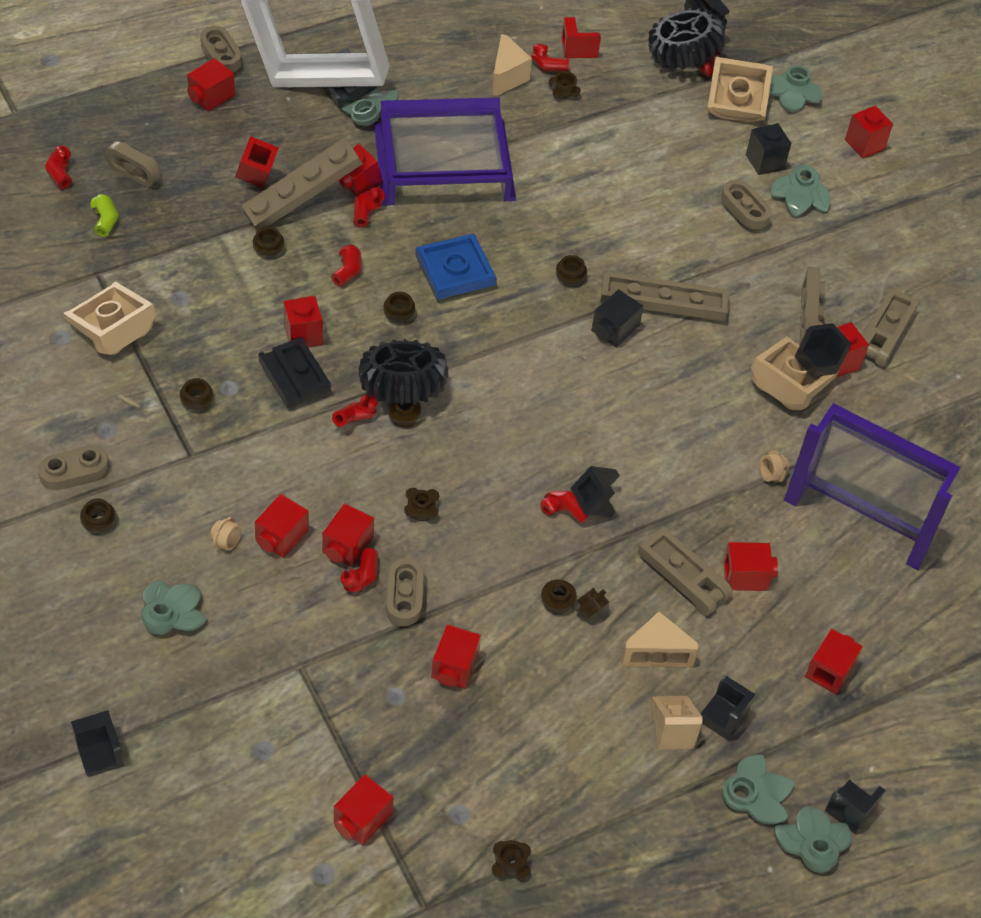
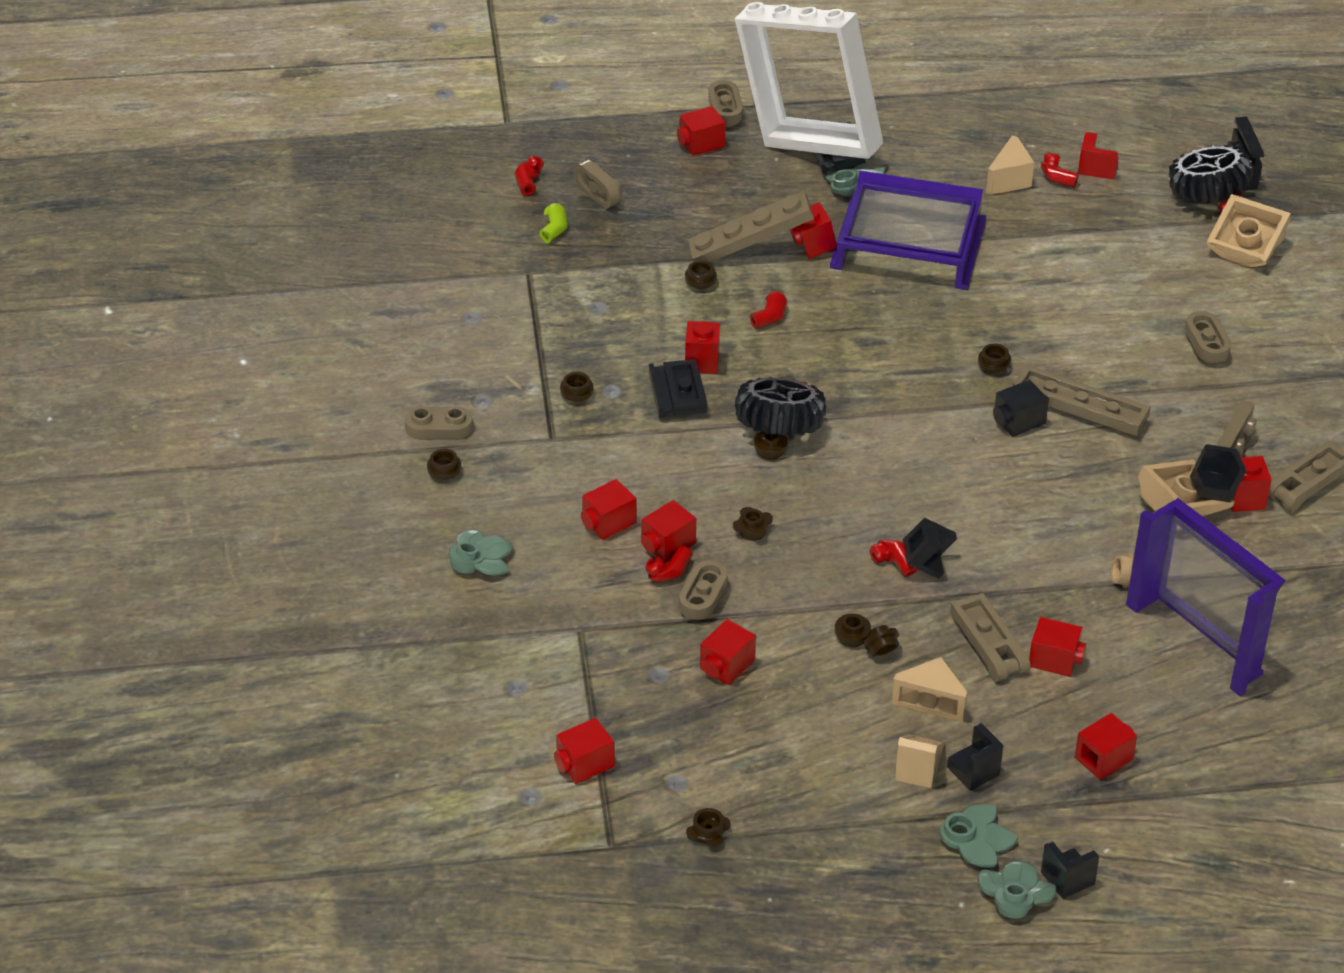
camera: 25 degrees right, 10 degrees down
(97, 743) = (368, 640): black panel -> none
(113, 318) = (524, 308): tan slope -> none
(225, 534) = (555, 505): tan plate -> none
(256, 162) = (715, 202): red brick -> none
(355, 411) = (722, 434): red arm -> none
(365, 204) = (811, 262): red arm -> none
(399, 307) = (805, 355): dark brown plate -> none
(455, 266) = (876, 331): blue plate -> none
(564, 85) = (1063, 196): dark brown plate -> none
(768, 149) = (1254, 290): black brick -> none
(795, 88) = (1314, 243): sand green plate -> none
(802, 193) = (1273, 339): sand green plate -> none

